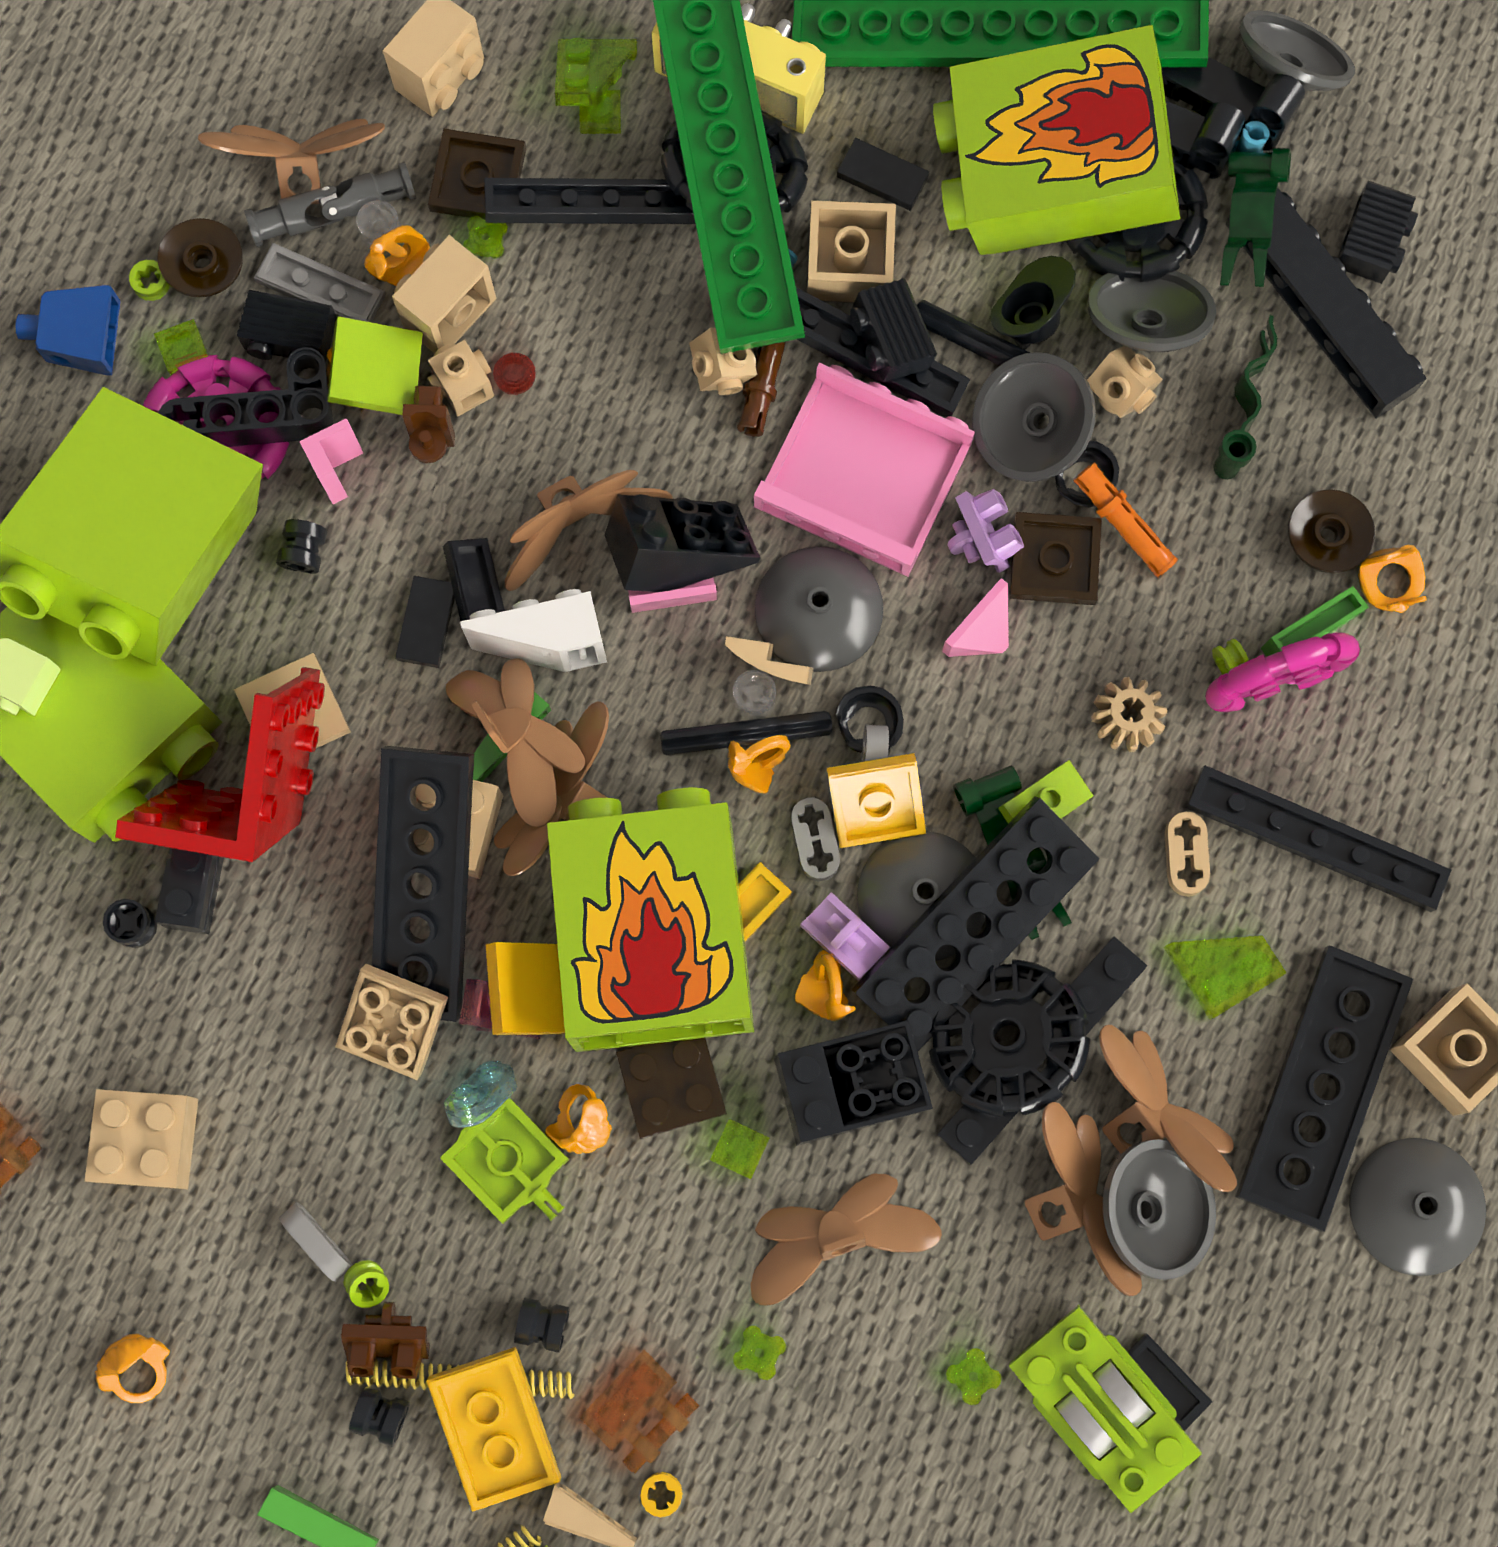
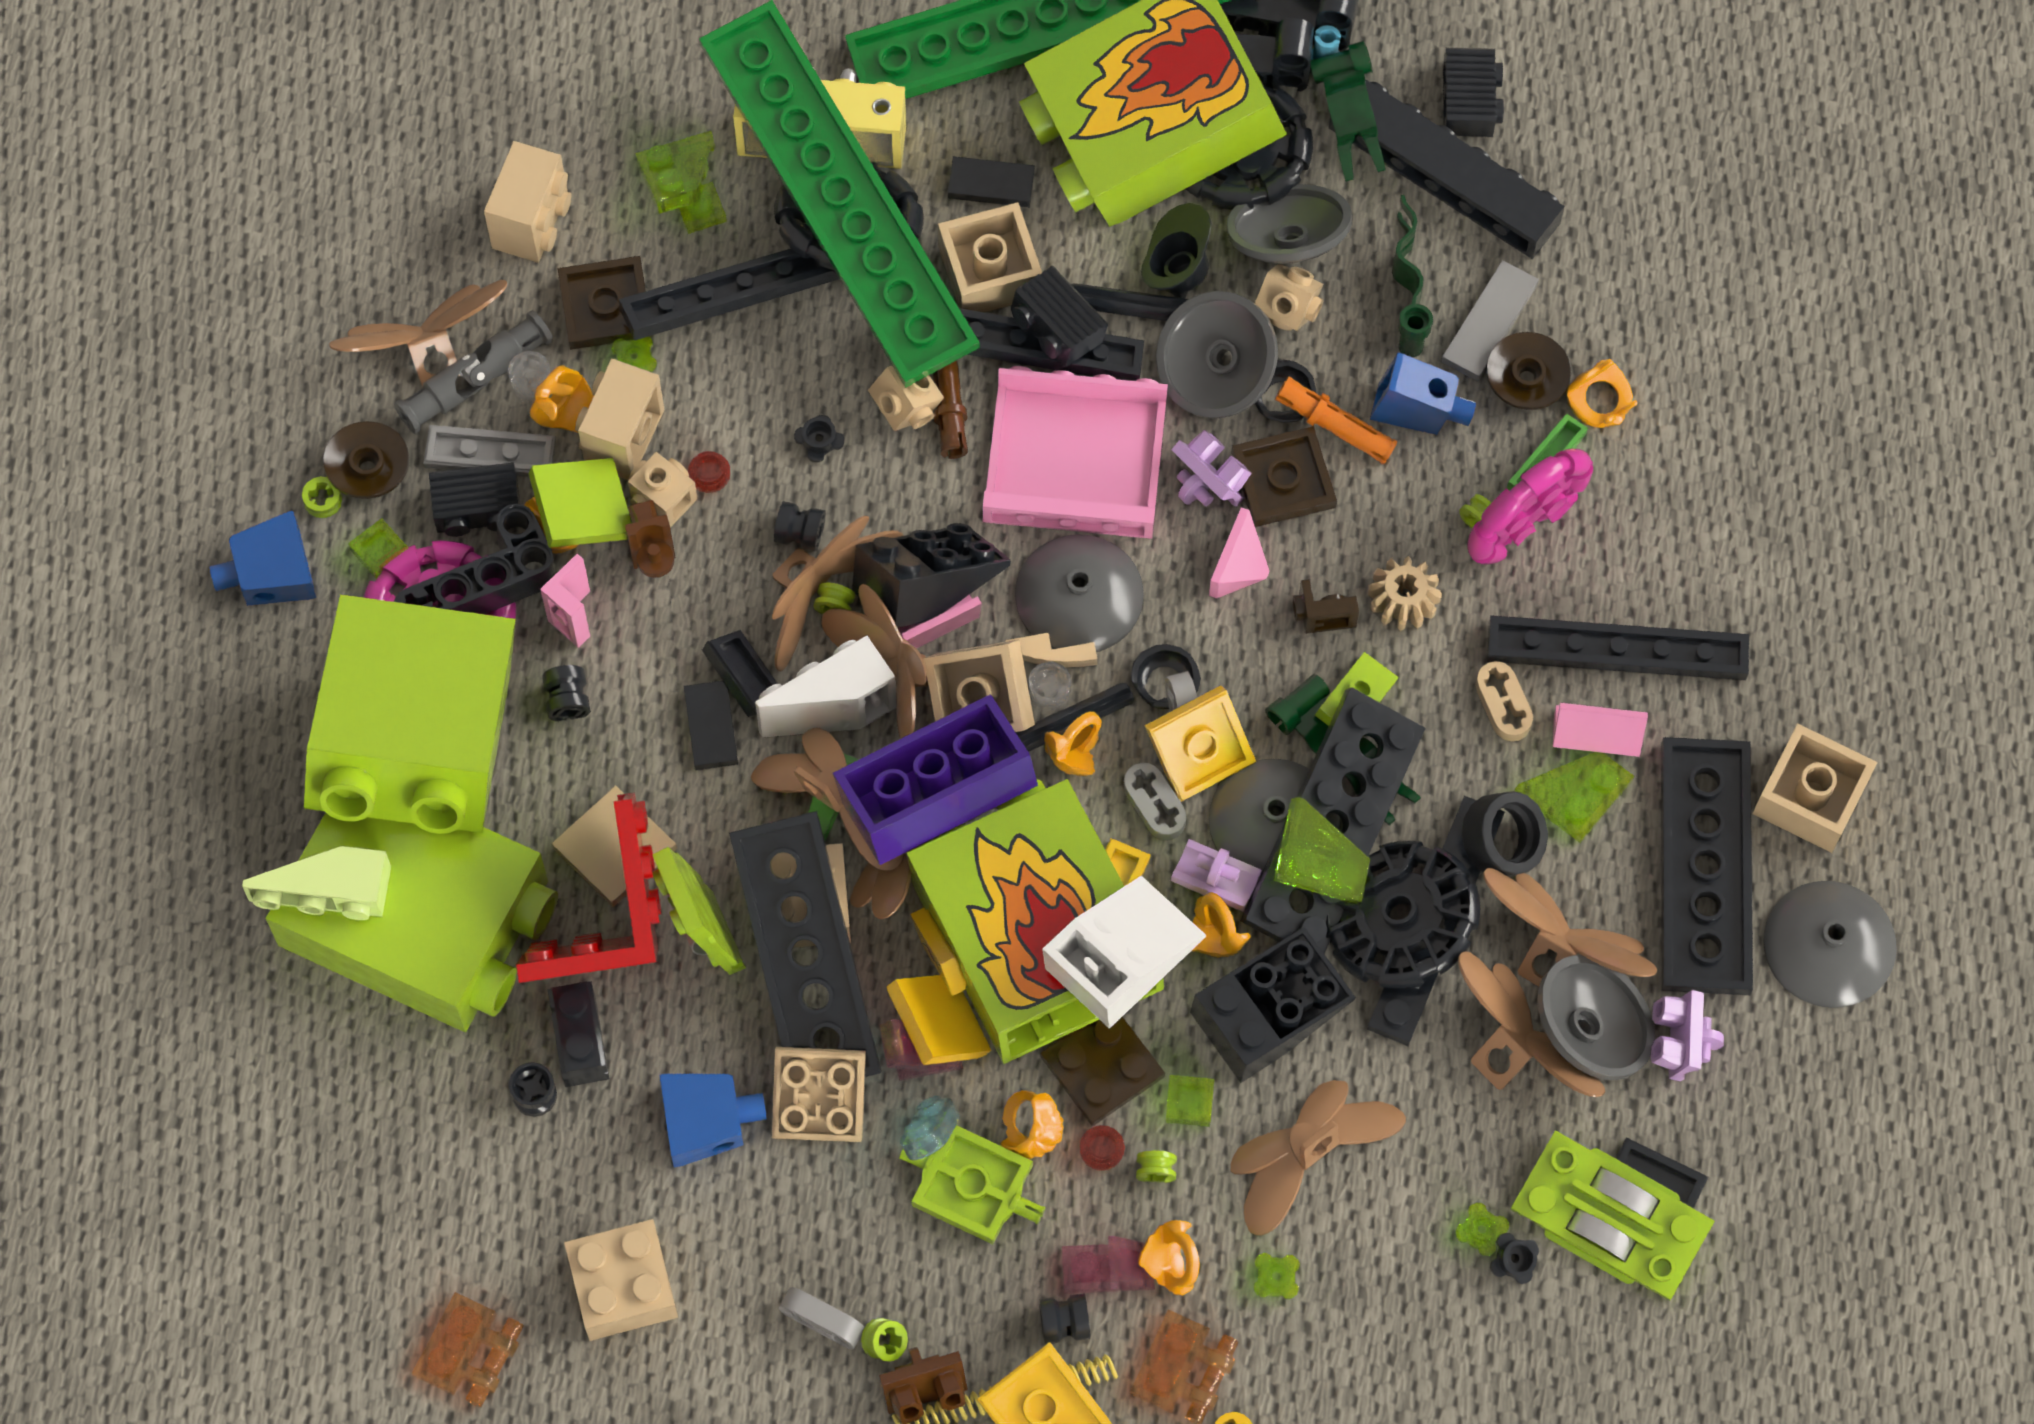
camera: 20 degrees left, 10 degrees down
(279, 1004) = (705, 1115): none -> blue torso
(328, 811) = (696, 911): none -> lime piece
(548, 924) = (939, 951): none -> yellow tile
(577, 455) = (802, 526): none -> black wheel
(584, 539) = (833, 596): none -> lime bush
(598, 760) = (935, 779): none -> dark purple brick
(603, 1286) = (1104, 1267): none -> clear pink slope
(609, 597) = (898, 654): none -> medium nougat piece
(627, 362) = (819, 426): none -> black plate
(640, 1165) = (1102, 1147): none -> clear red plate
(662, 1301) = (1163, 1258): none -> light orange piece
(682, 679) = (975, 672): none -> tan brick
(683, 1204) = (1156, 1166): none -> lime bush
(712, 999) = (1120, 949): none -> white slope
(948, 956) = (1320, 856): none -> clear neon green wing
(997, 1429) = (1527, 1258): none -> black plate
(1050, 710) = (1327, 614): none -> dark brown bracket
(1162, 1004) = (1530, 826): none -> black tyre
(1215, 524) = (1419, 397): none -> blue torso
(1244, 1255) = (1689, 1038): none -> lavender hips
(1269, 916) = (1599, 729): none -> bright pink panel
(1312, 467) = (1490, 320): none -> light grey tile

